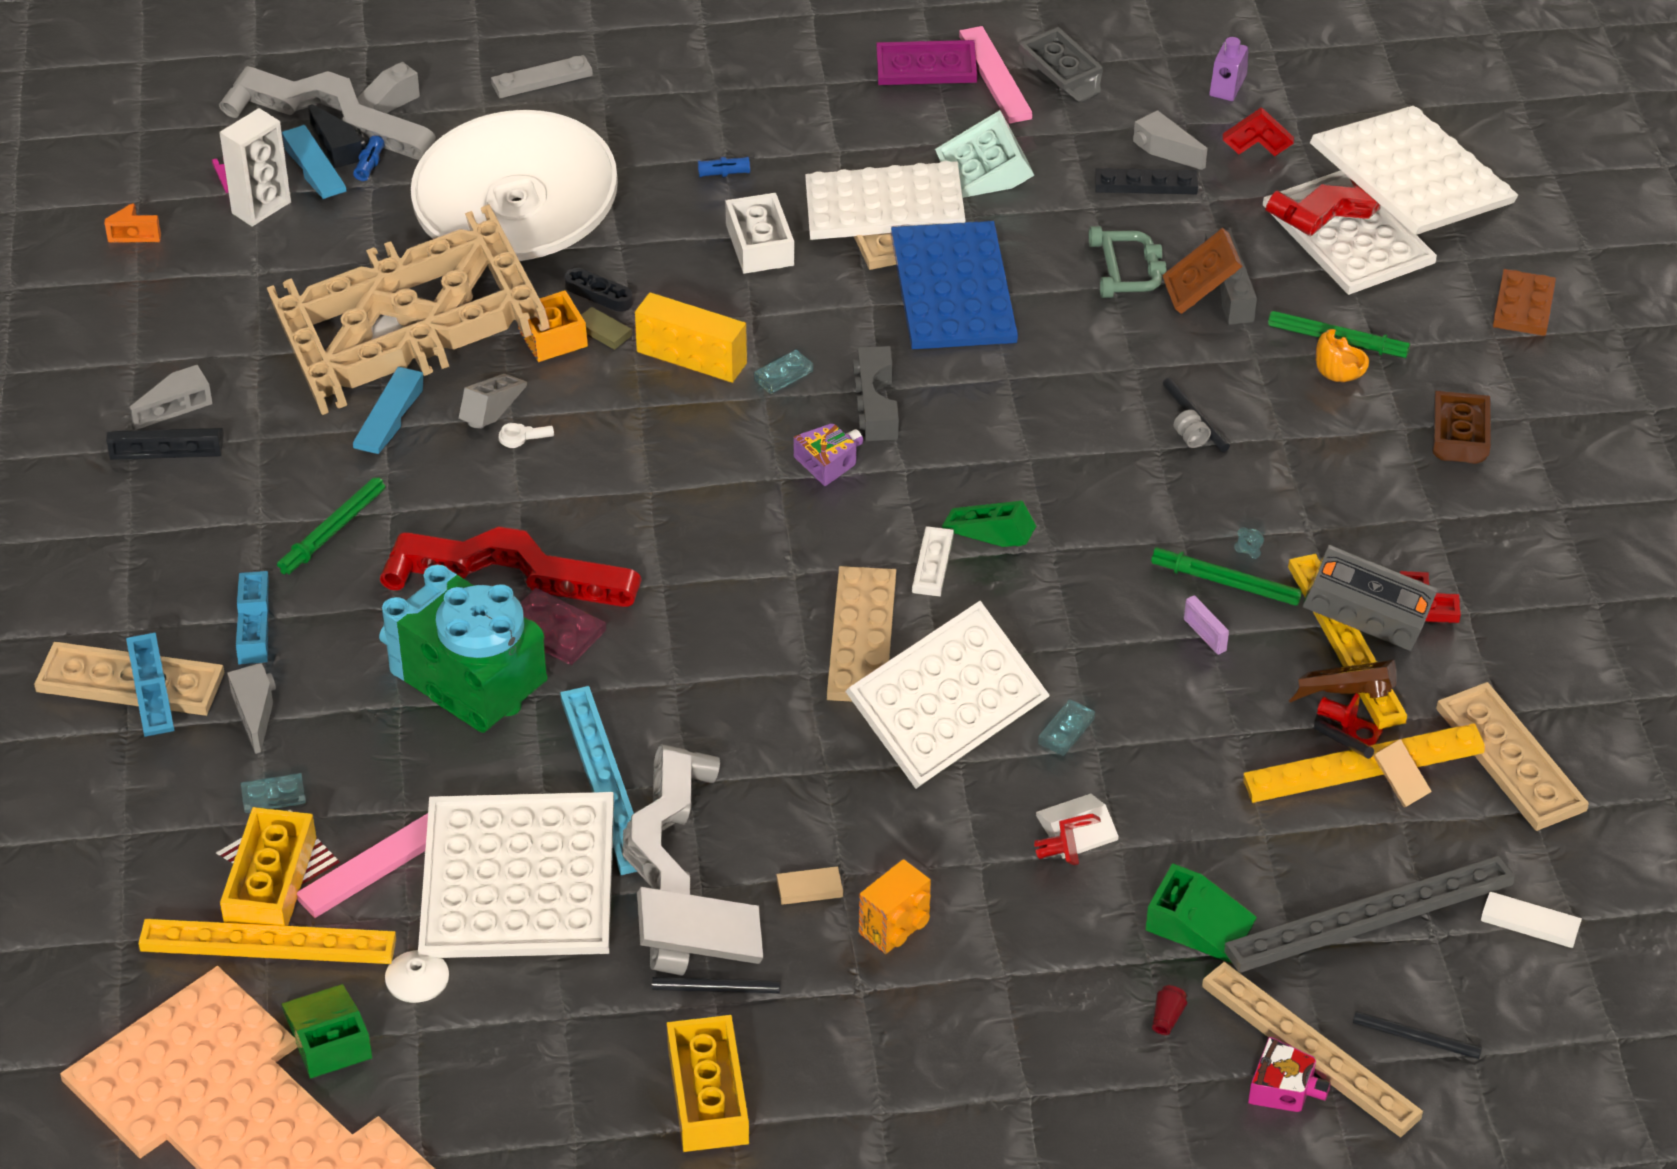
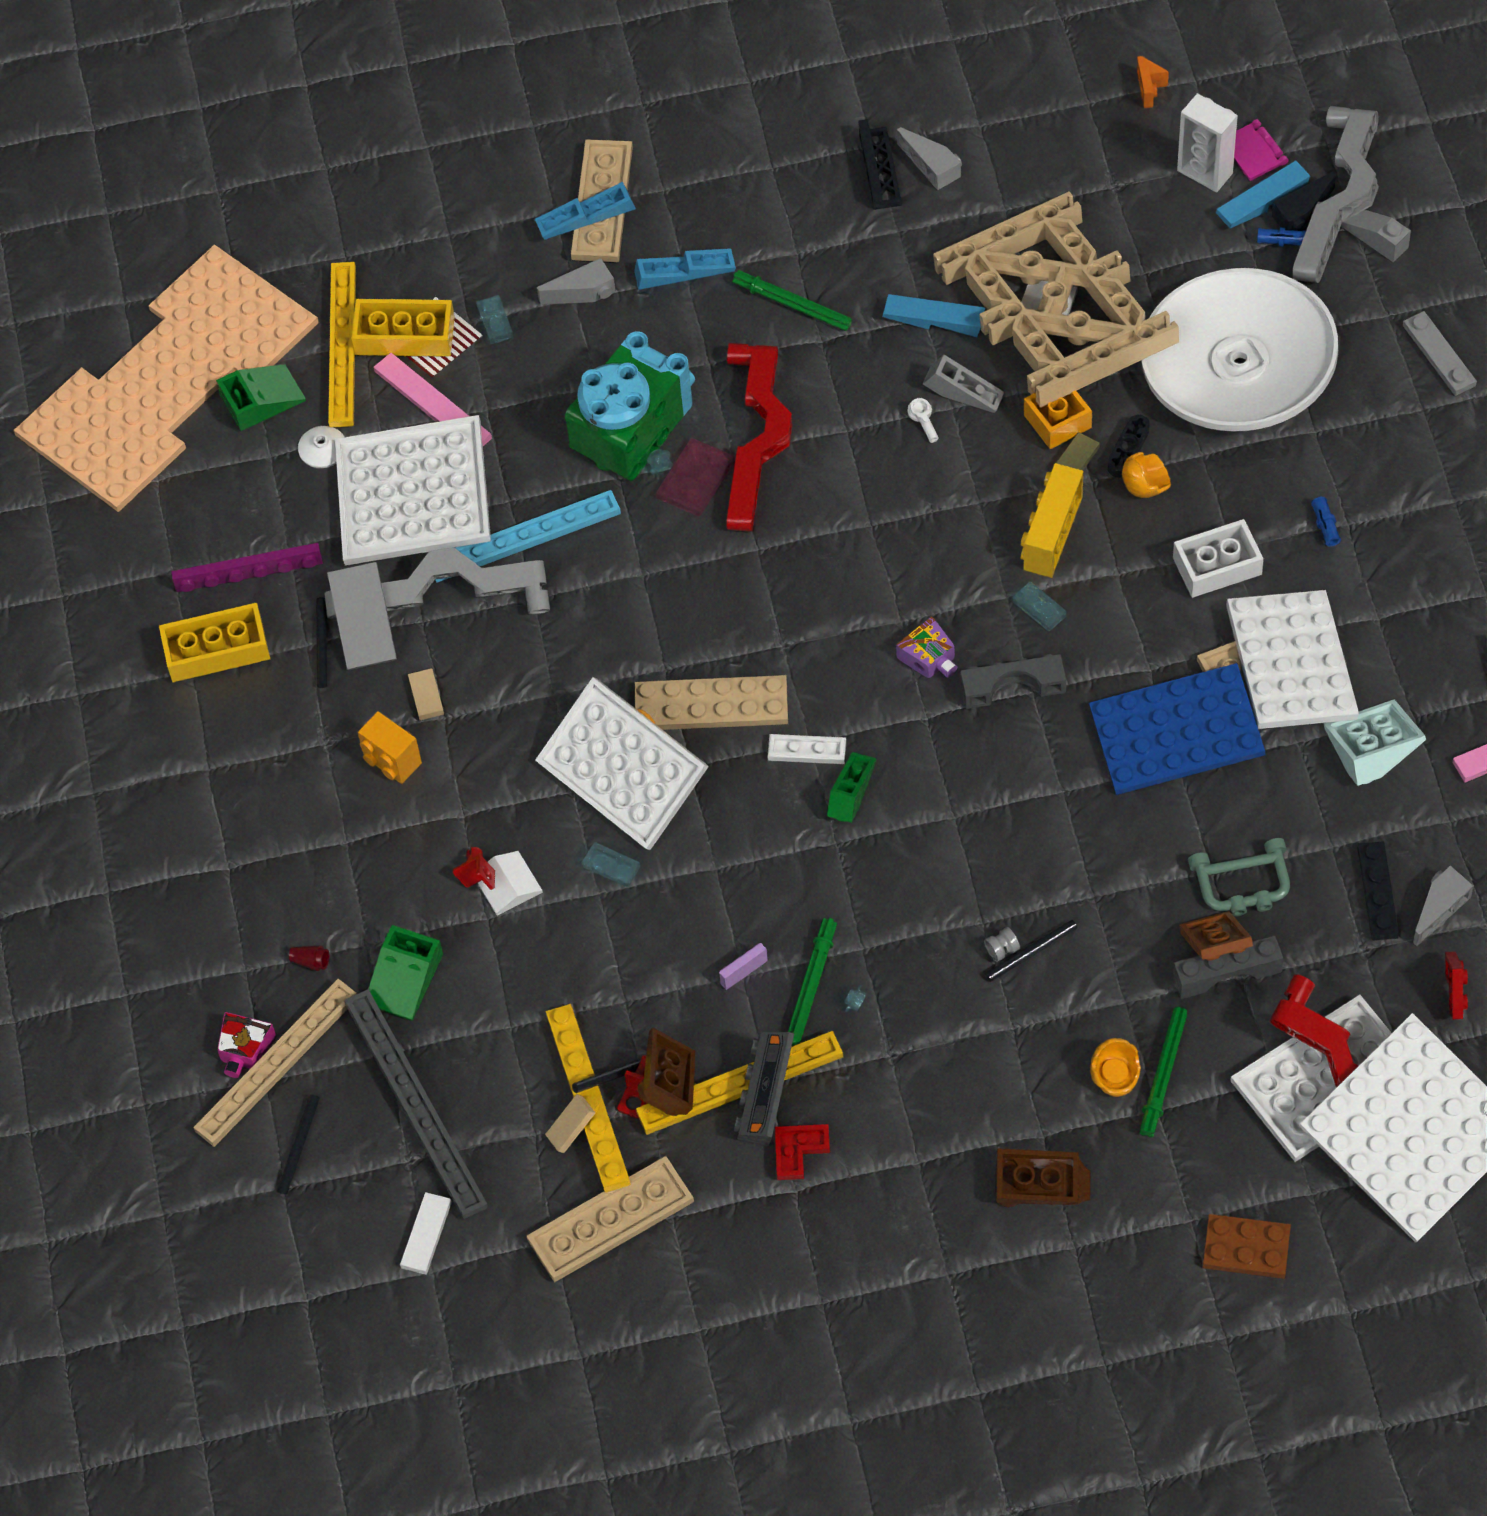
camera: 90 degrees right, 15 degrees up
(596, 1062) = (247, 567): none -> magenta plate
(648, 275) = (1145, 475): none -> light orange piece

